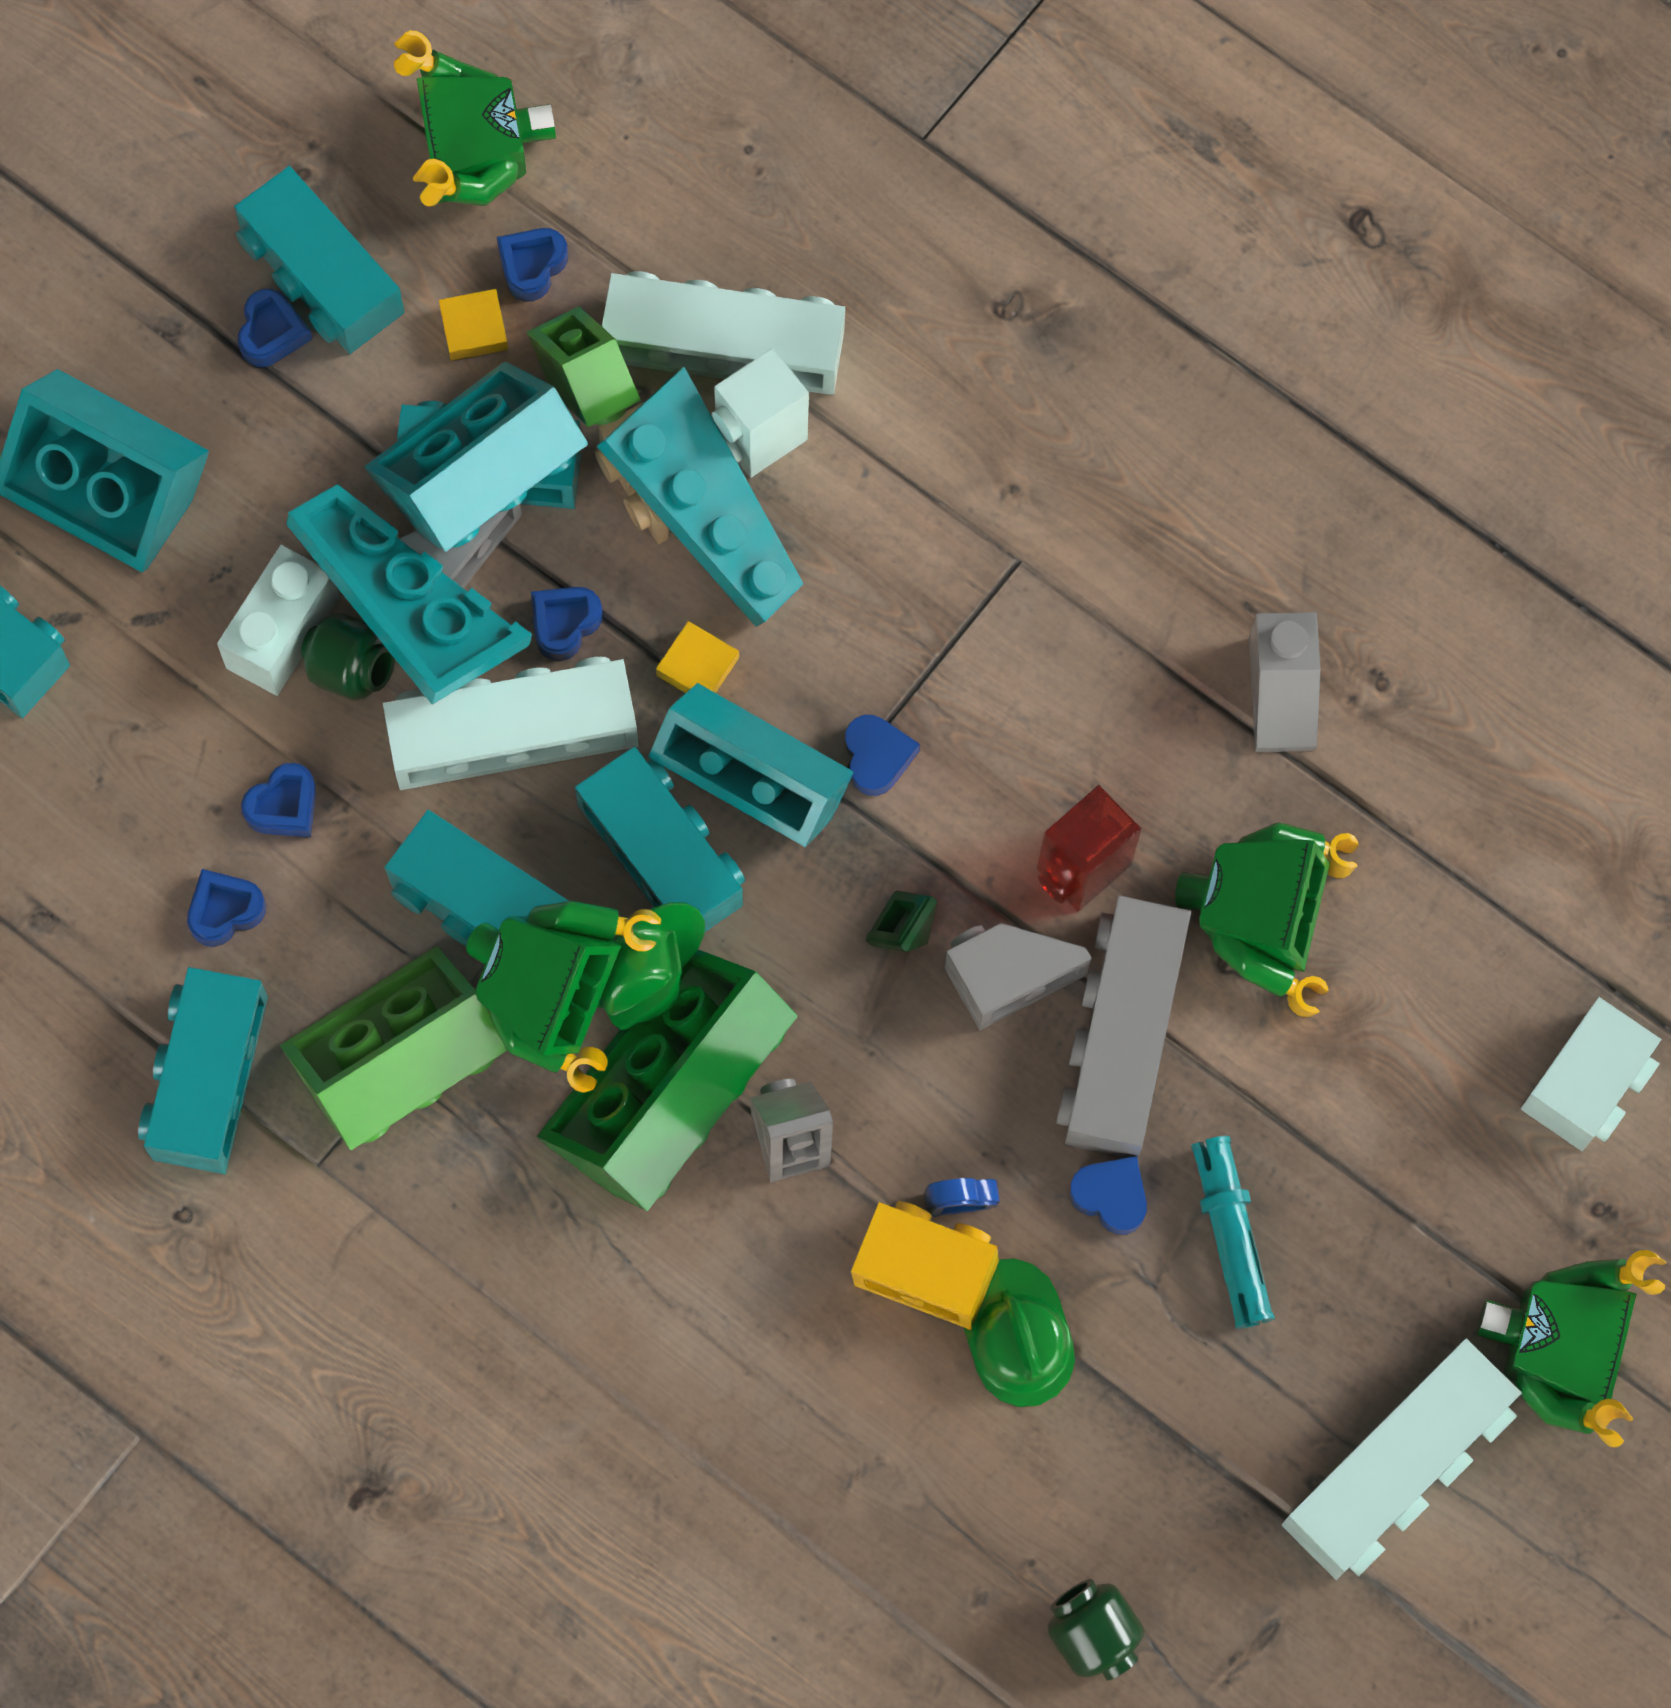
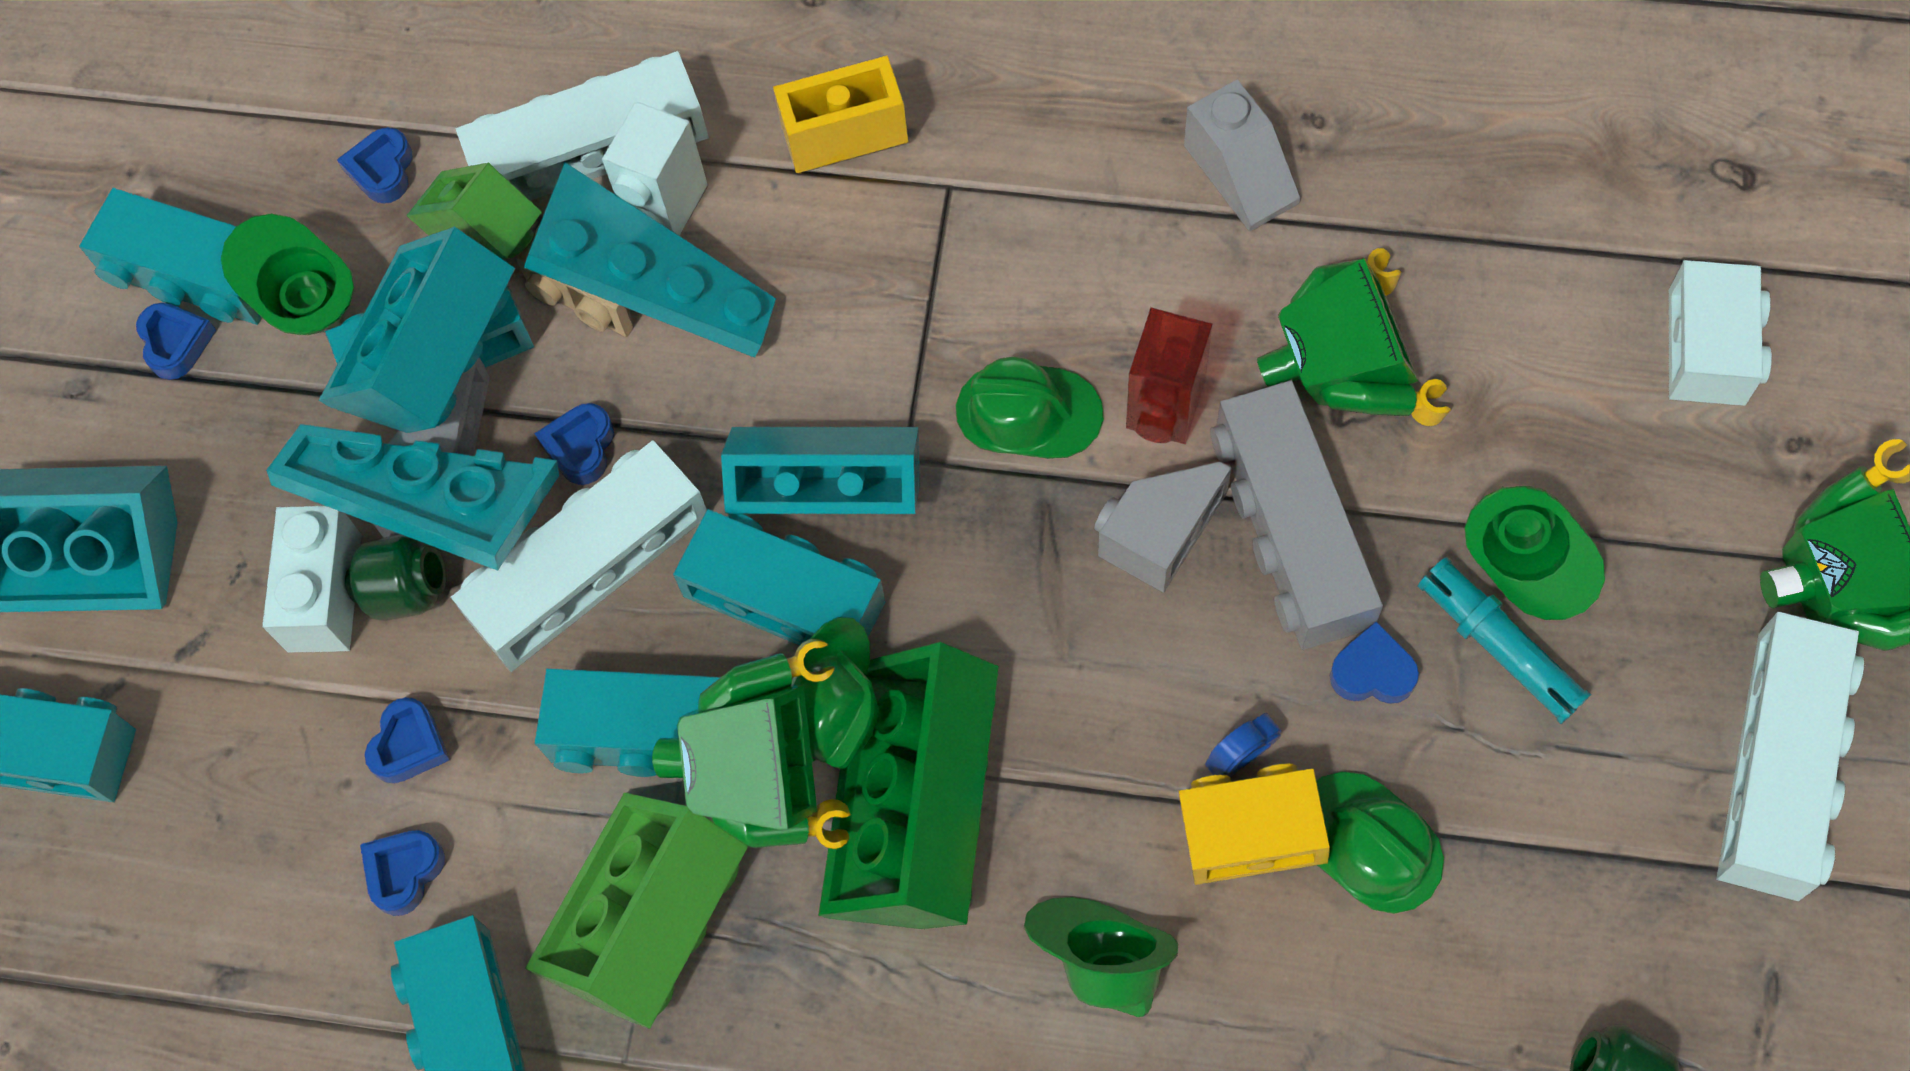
camera: 20 degrees left, 5 degrees down
(396, 333) = (287, 274): none -> green piece
(469, 126) = (259, 79): green torso -> none
(473, 324) = (358, 239): yellow tile -> none
(697, 659) = (716, 410): yellow tile -> none
(743, 1293) = (1103, 951): none -> green piece
(792, 1128) = (1058, 767): light grey slope -> none
(878, 753) = (927, 403): blue tile -> none
(904, 922) = (1040, 533): dark green slope -> none
(954, 446) = (841, 114): none -> yellow brick
(963, 807) = (1029, 410): none -> green piece
(1304, 1172) = (1535, 552): none -> green piece

